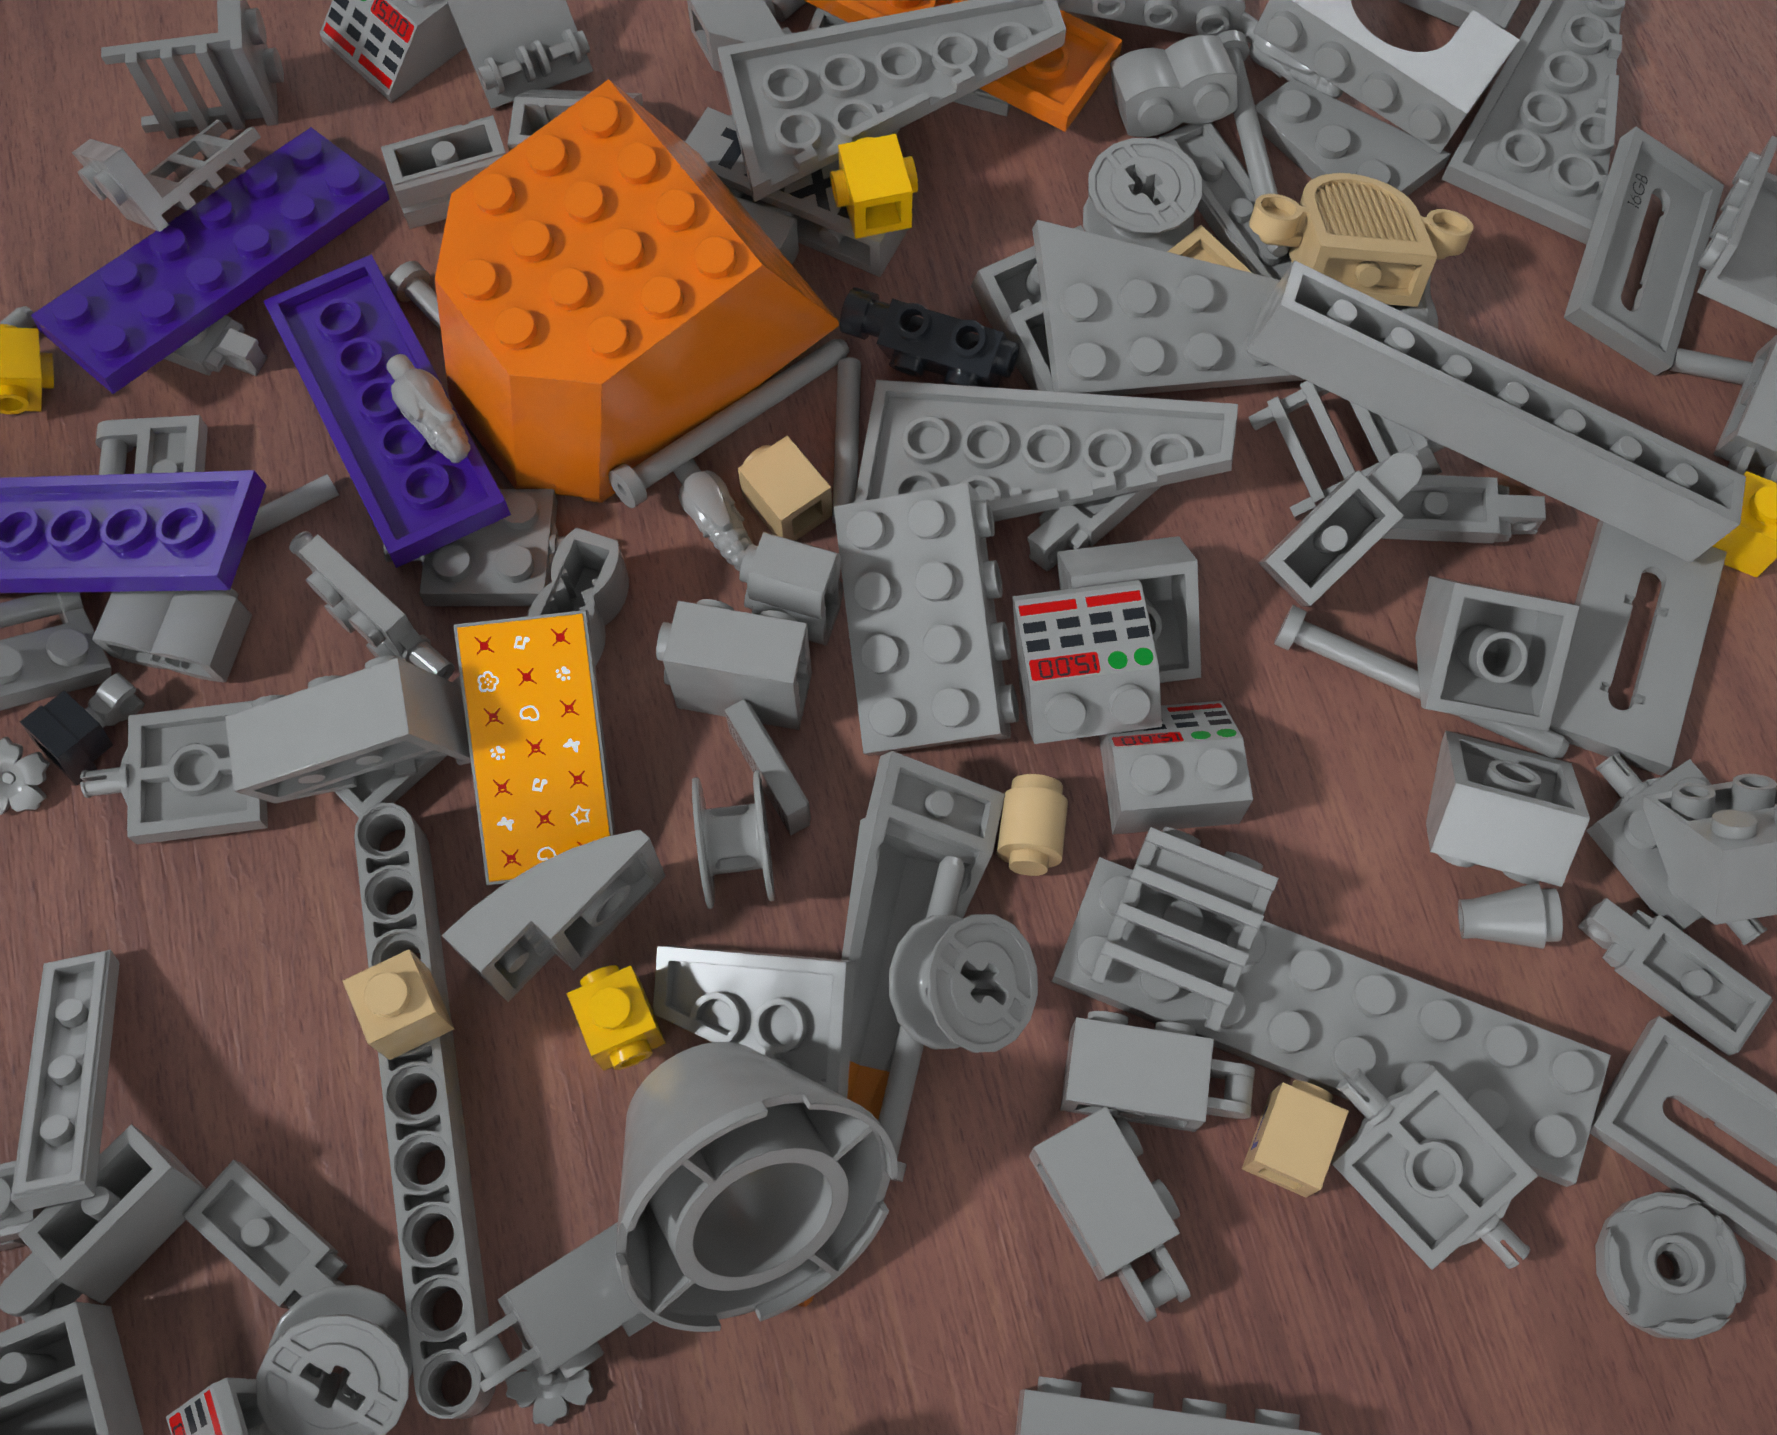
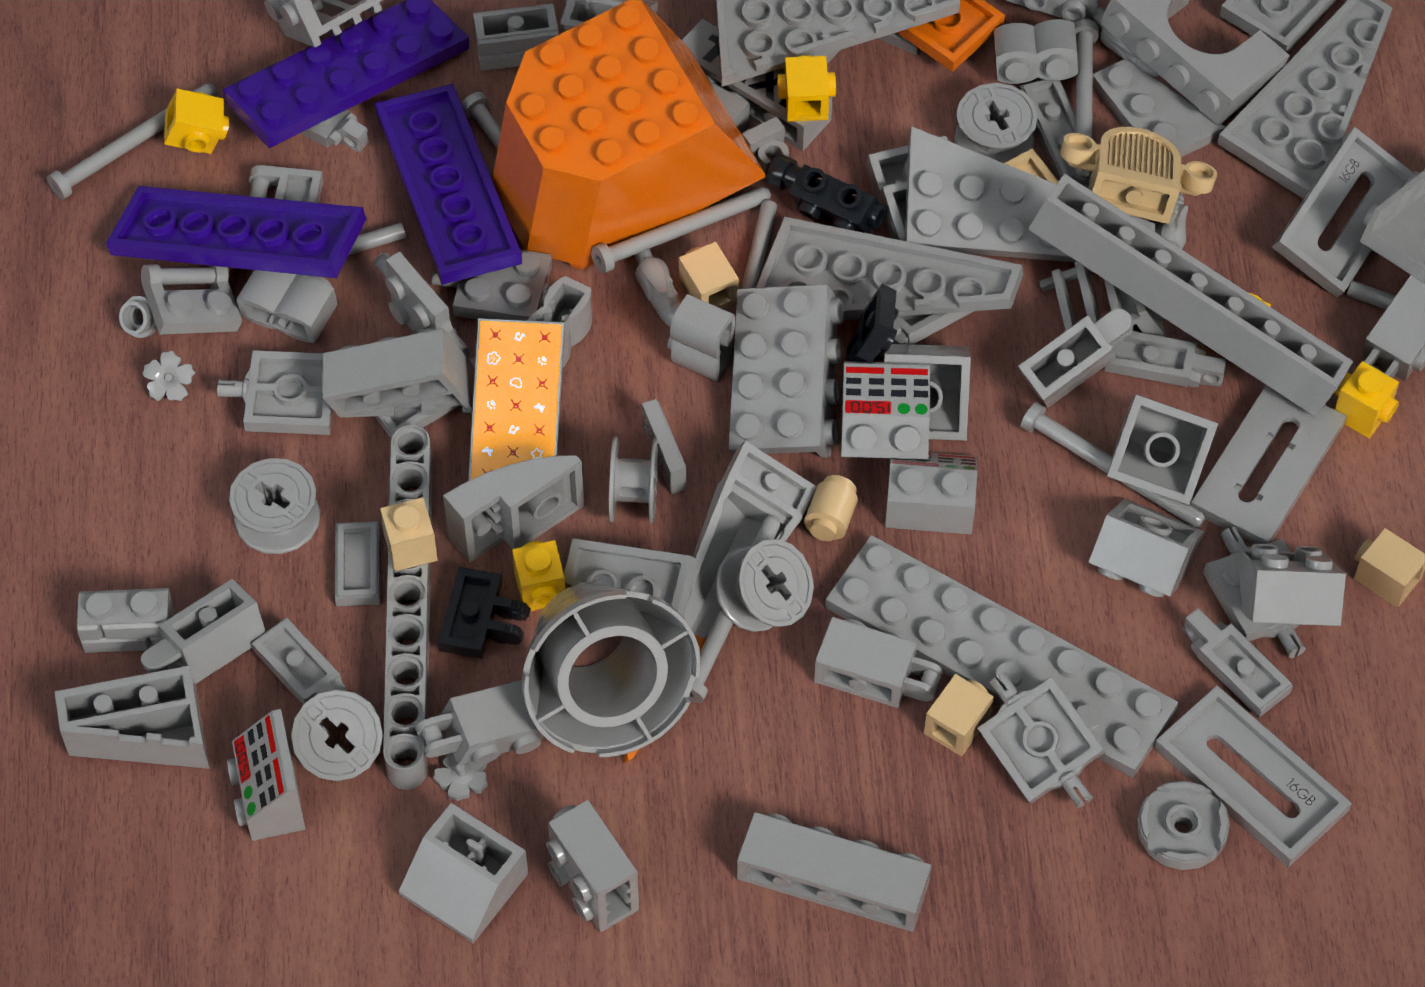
camera: 10 degrees right, 10 degrees down
(66, 1082) = (193, 550): light grey tile -> none
(76, 735) = (216, 356): black piece -> none
(175, 1000) = (272, 527): none -> light grey piece
(334, 1050) = (357, 563): none -> light grey tile
(427, 408) = (479, 186): light grey piece -> none
(523, 1096) = (472, 611): none -> black hinge
(733, 655) = (658, 369): light grey brick -> none
(830, 270) = (766, 141): none -> light grey tile
(1048, 539) = (875, 327): none -> black hinge
(1113, 1205) = (832, 730): light grey brick -> none
(1217, 883) = (929, 549): light grey plate -> none
(1513, 916) = (1137, 612): light grey cone -> none

